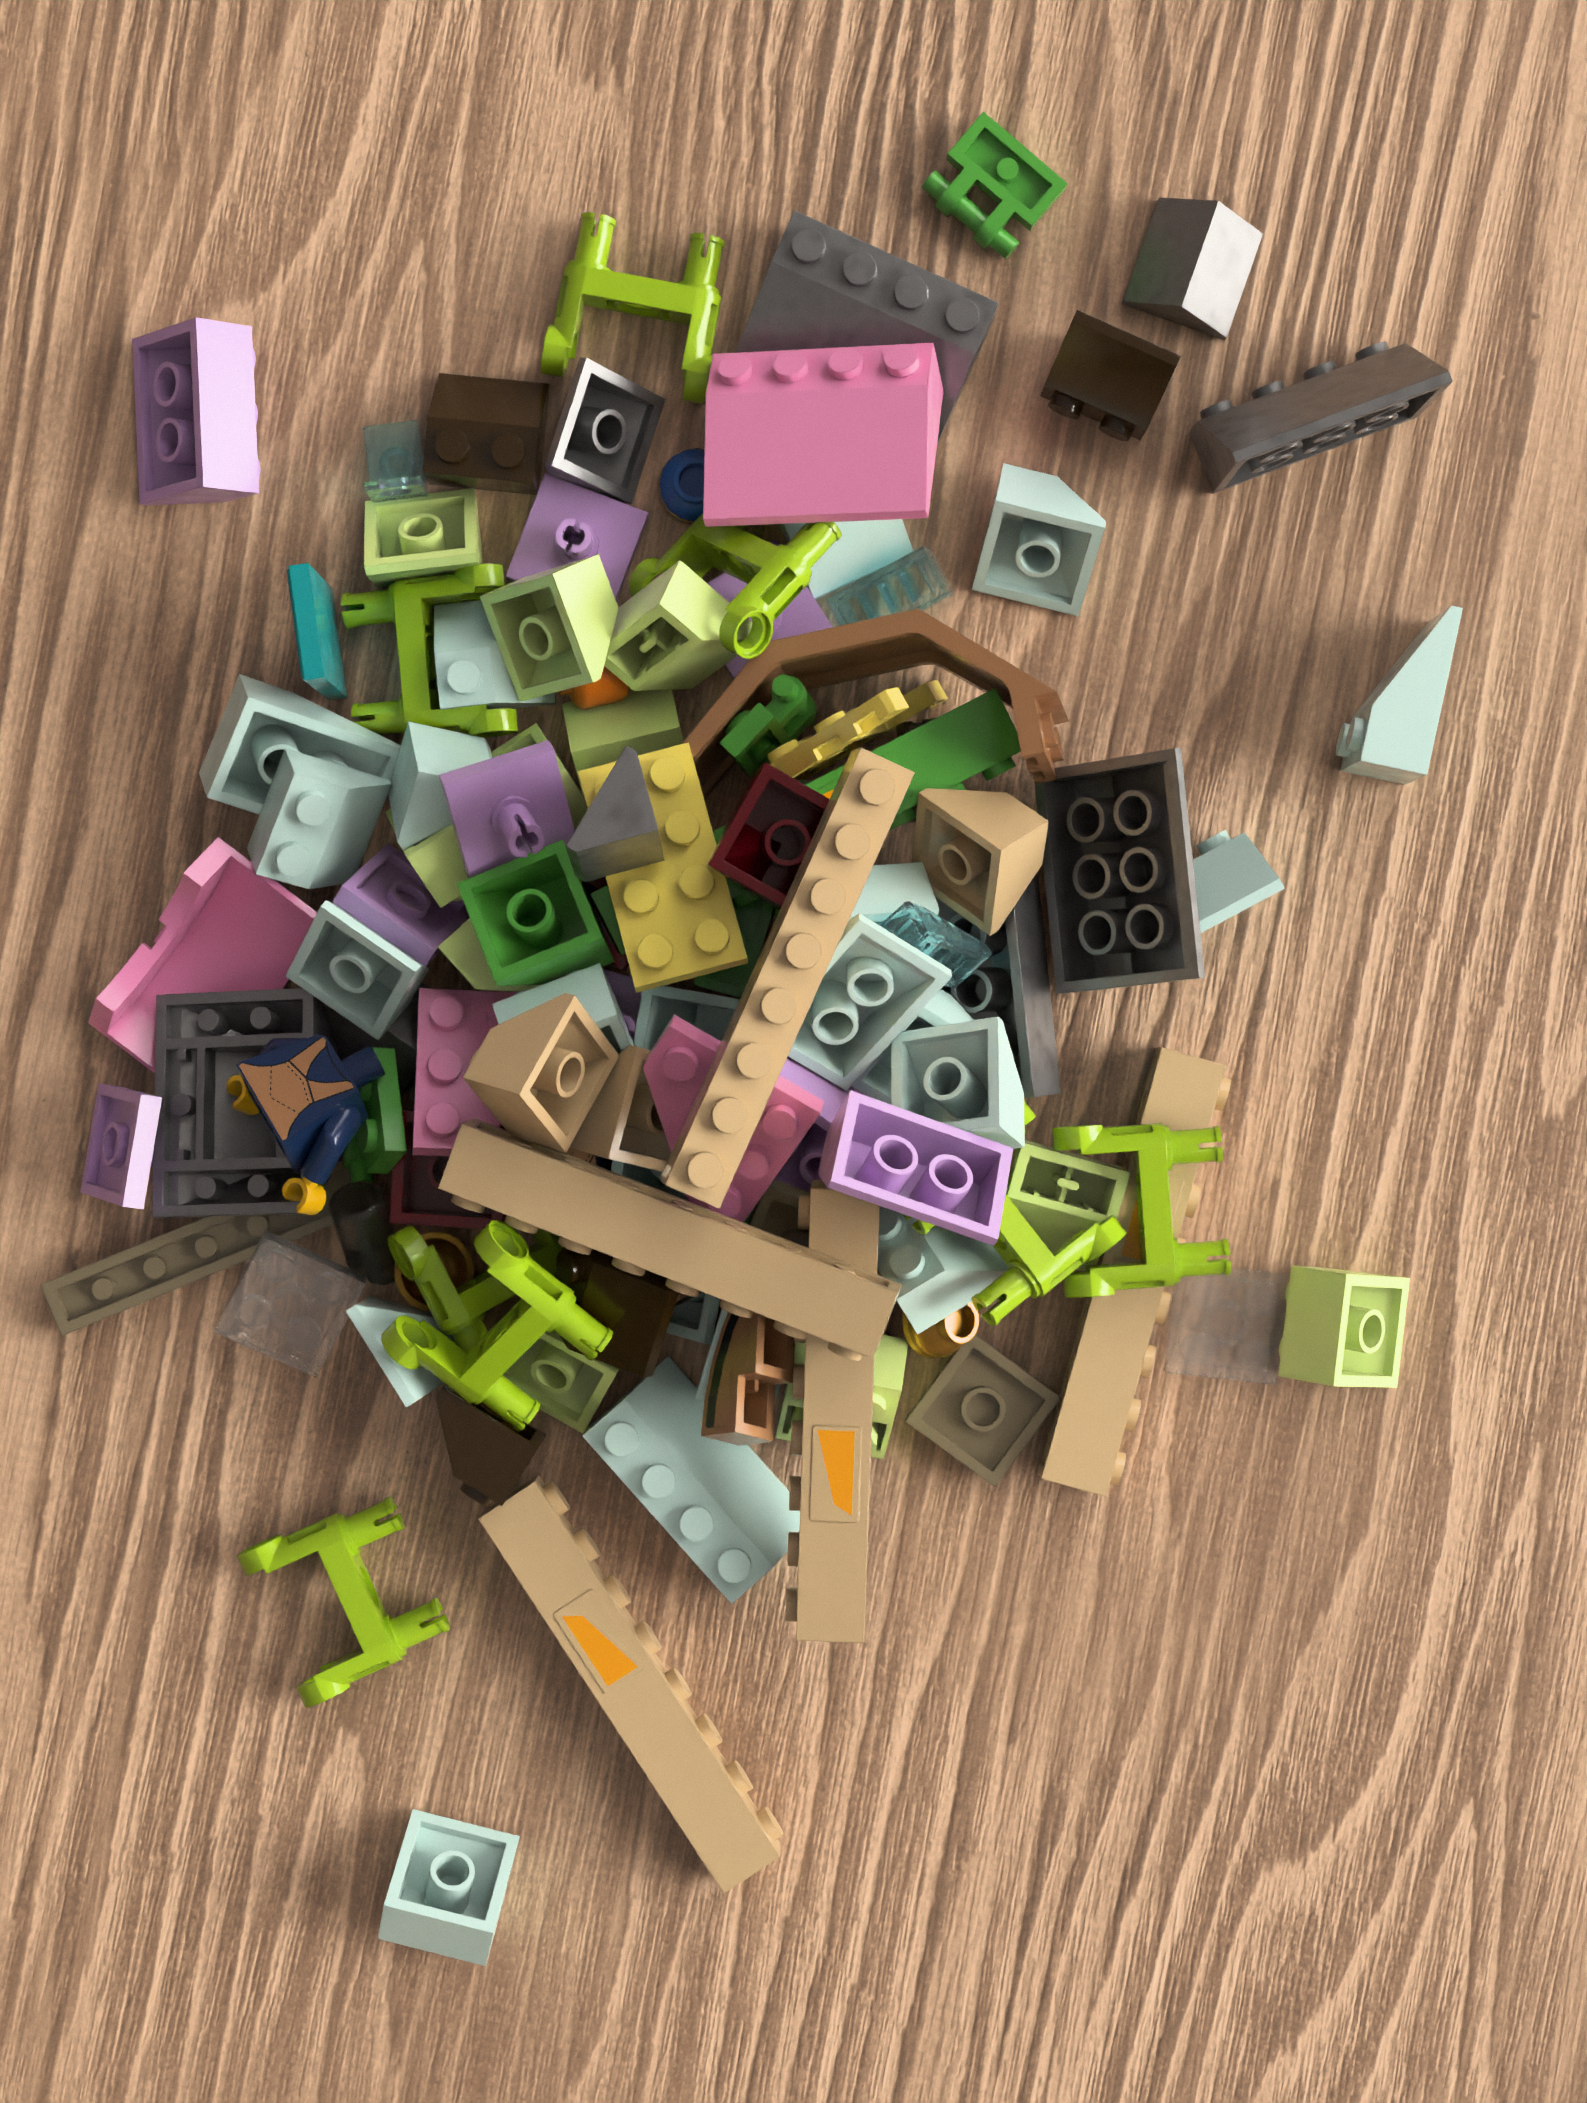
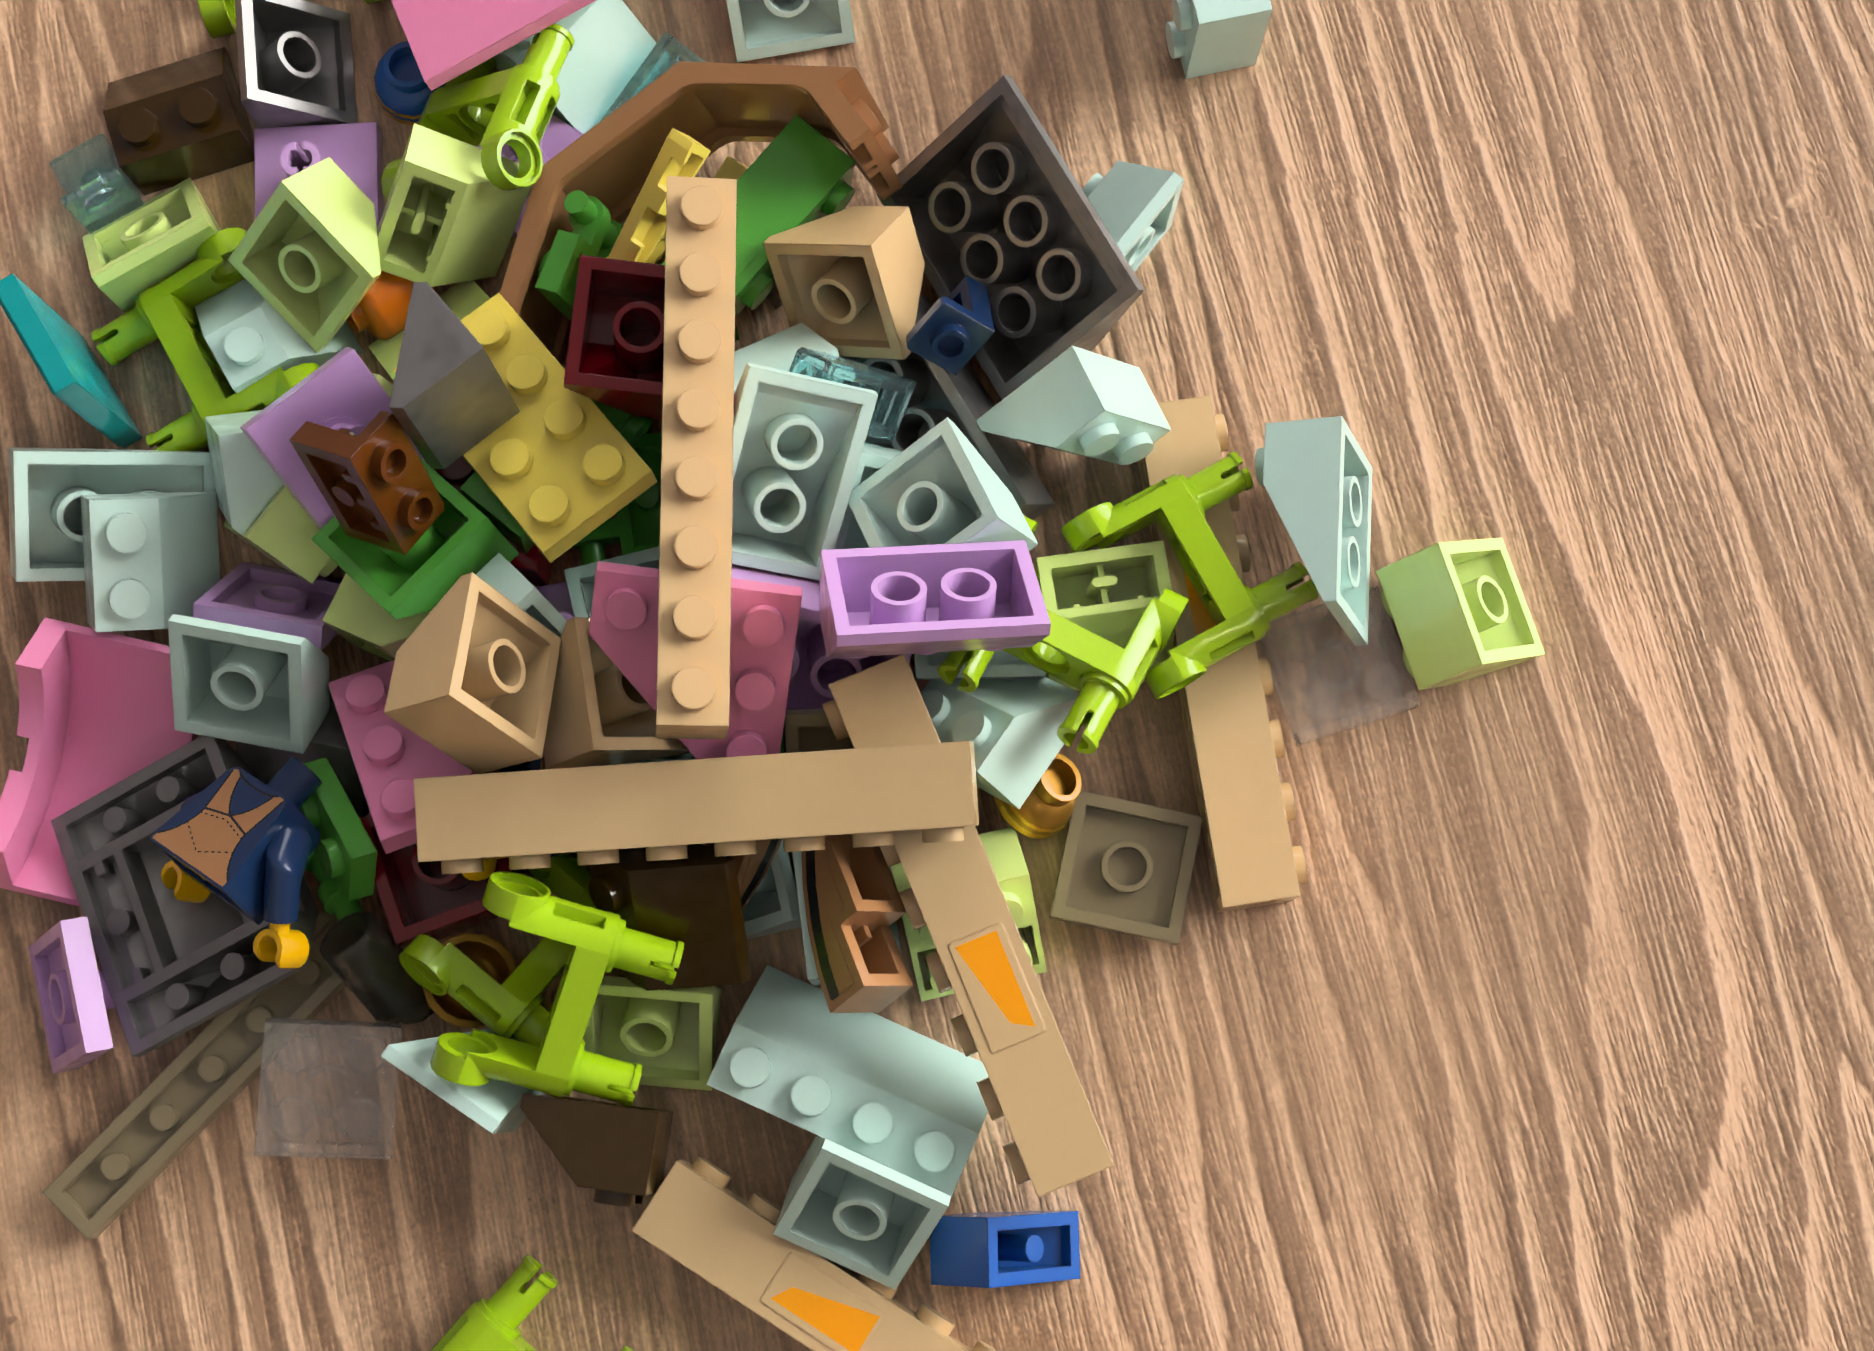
camera: 25 degrees left, 10 degrees down
(523, 884) = (371, 481): none -> reddish brown bracket
(656, 1583) = (858, 1212): none -> light aqua slope
(754, 1655) = (1005, 1248): none -> blue slope
(1045, 927) = (954, 327): none -> dark blue bracket
(1113, 1042) = (1082, 408): none -> light aqua slope
(1270, 1200) = (1325, 503): none -> light aqua slope

